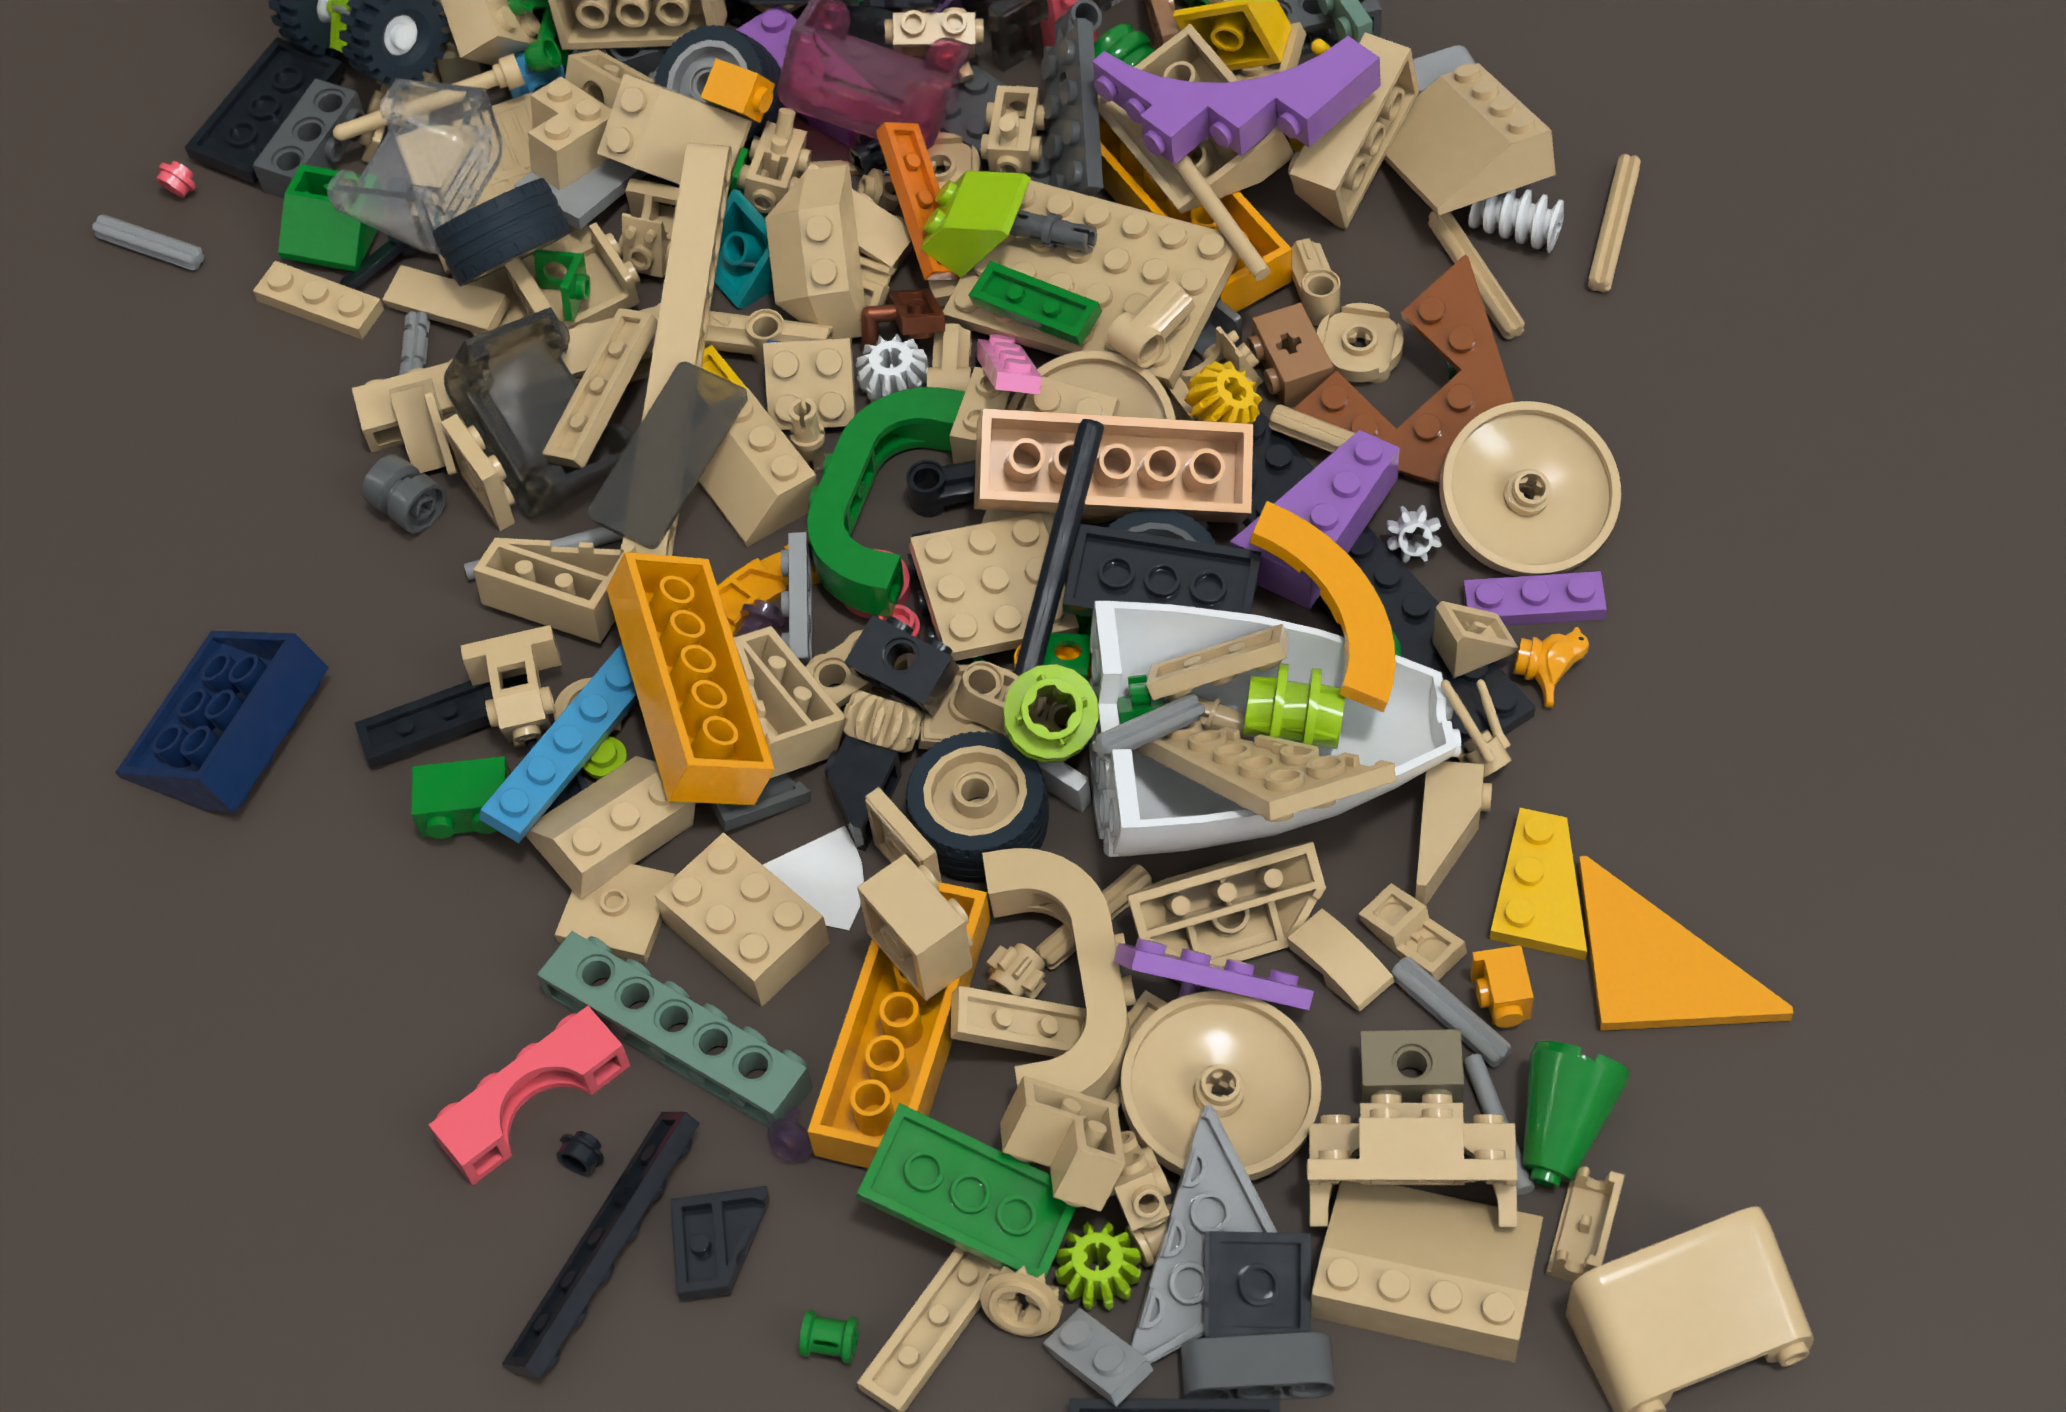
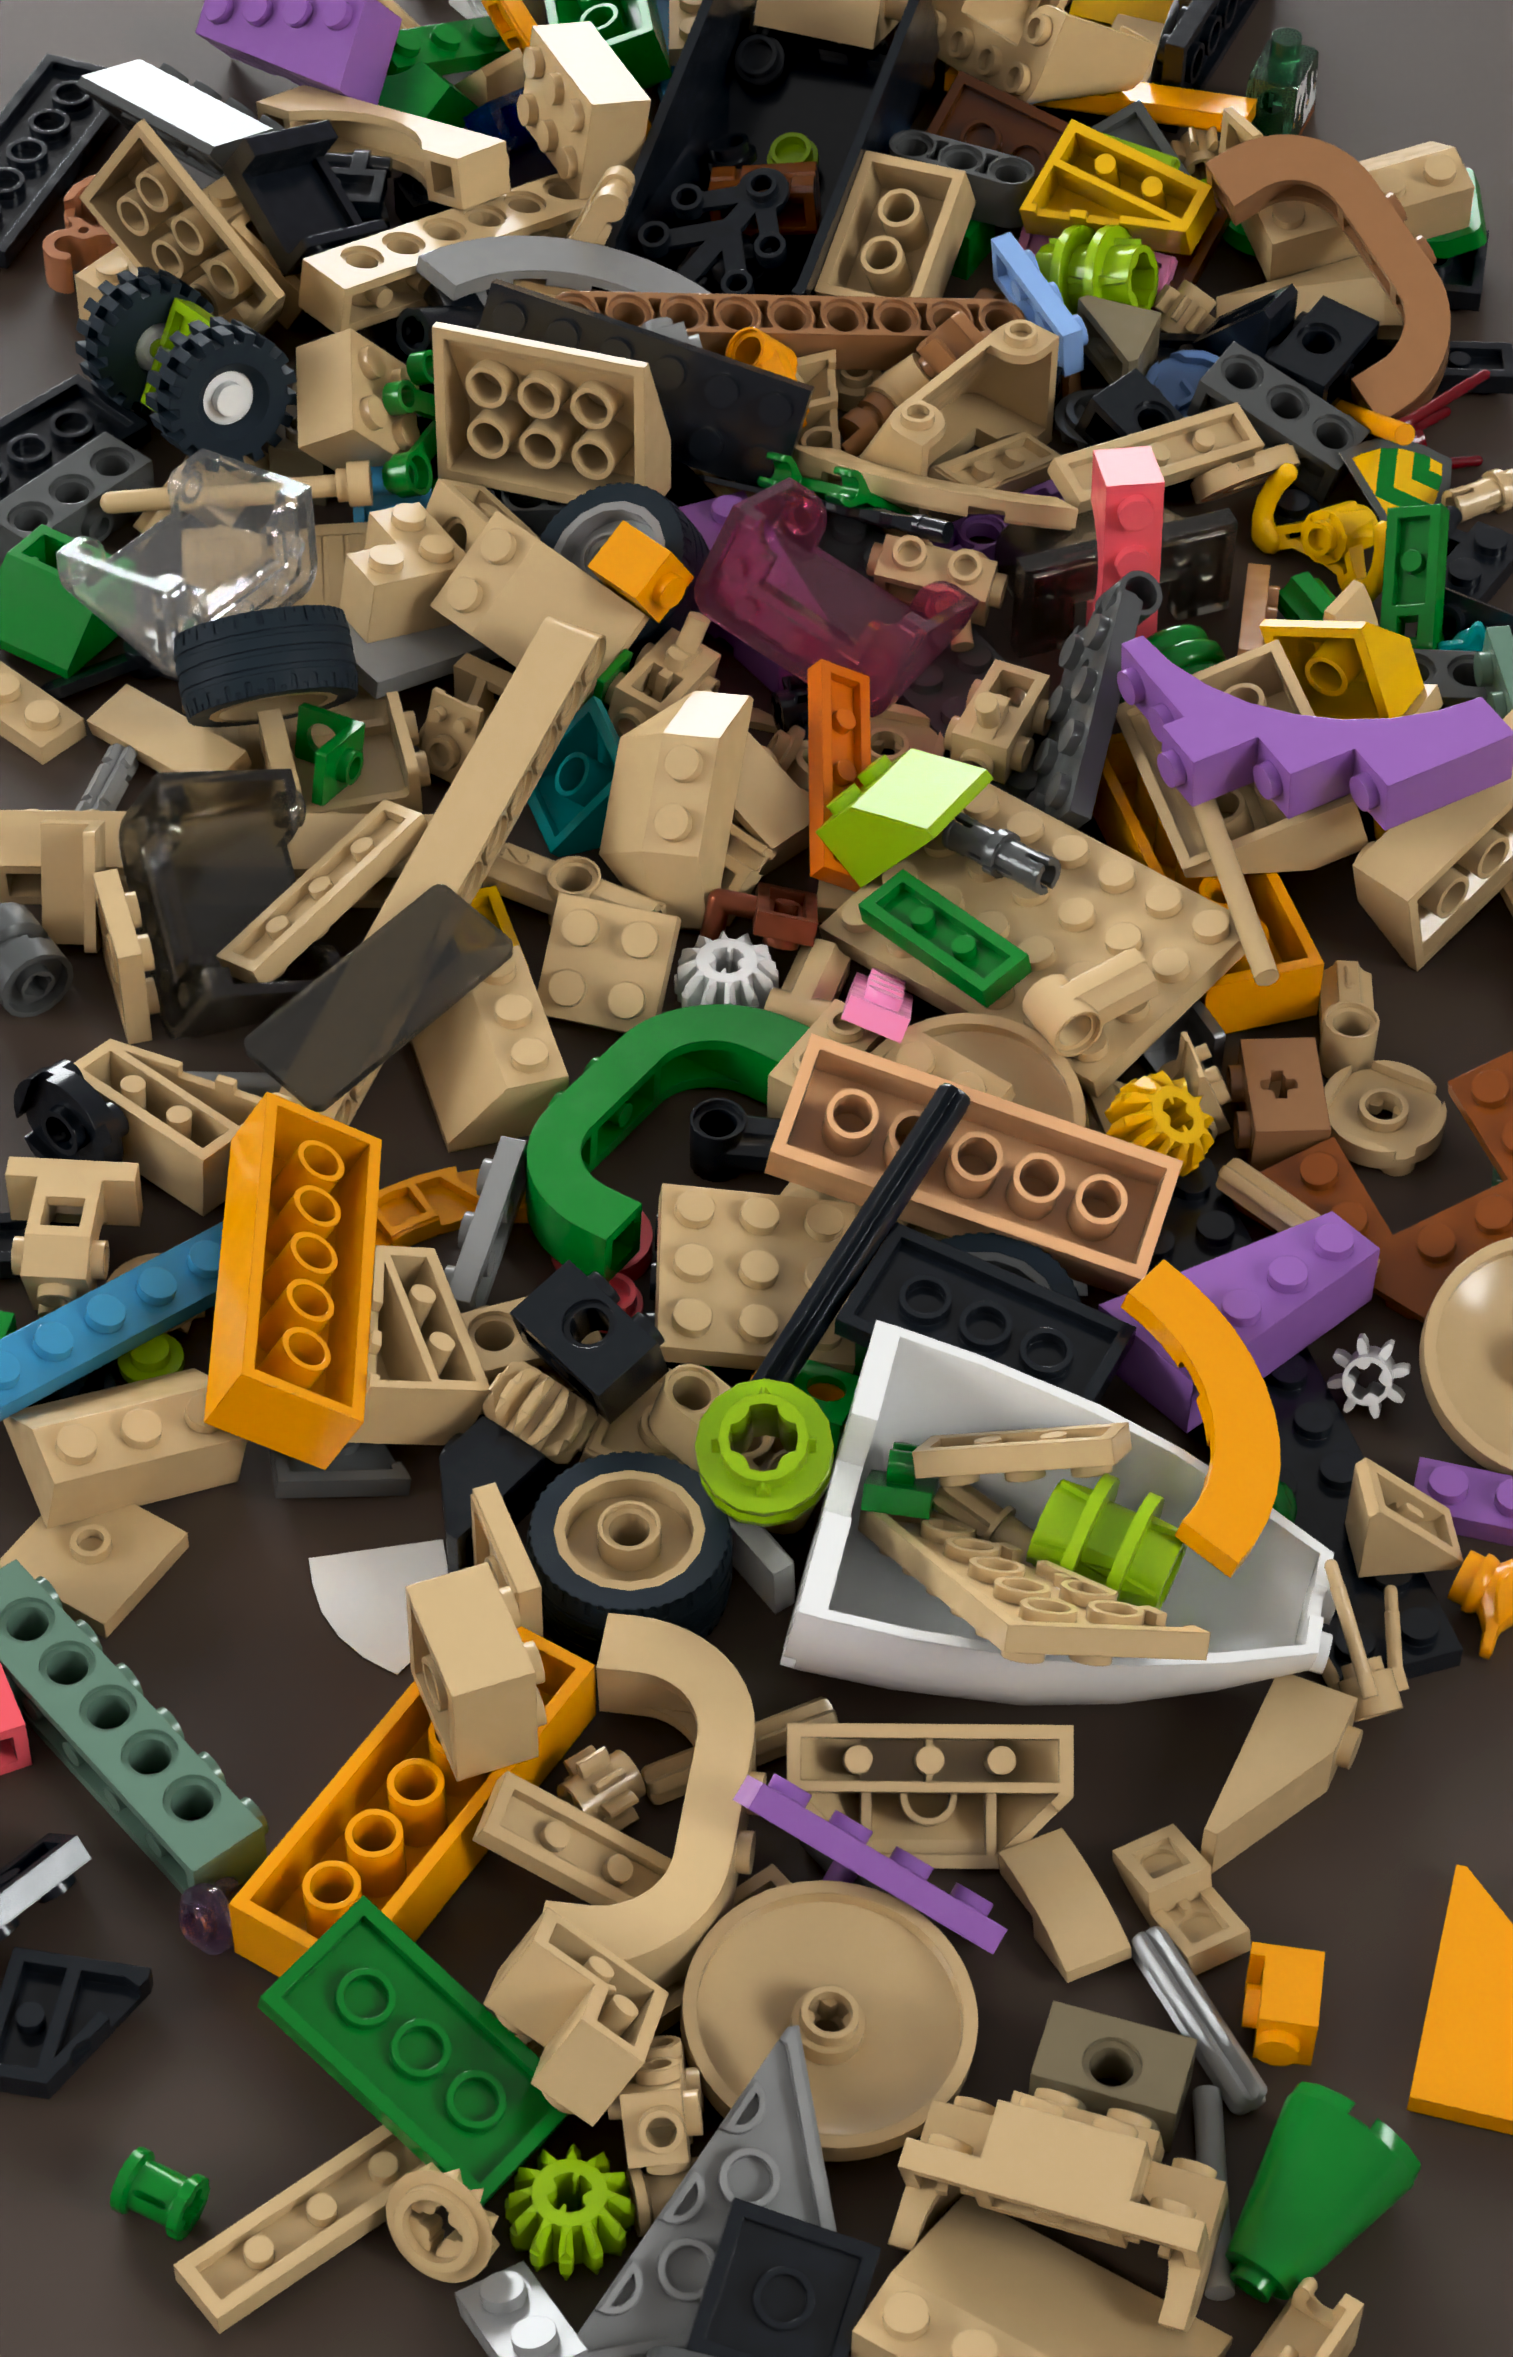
camera: 10 degrees right, 10 degrees down
(488, 604) = (69, 1116): none -> black plate
(742, 919) = (254, 1614): tan brick -> none
(760, 616) = (431, 1233): plate -> none
(807, 432) = (577, 1021): tan pin -> none
(1149, 726) = (898, 1507): light grey axle -> none
(1540, 889) = (1384, 1893): yellow wing -> none

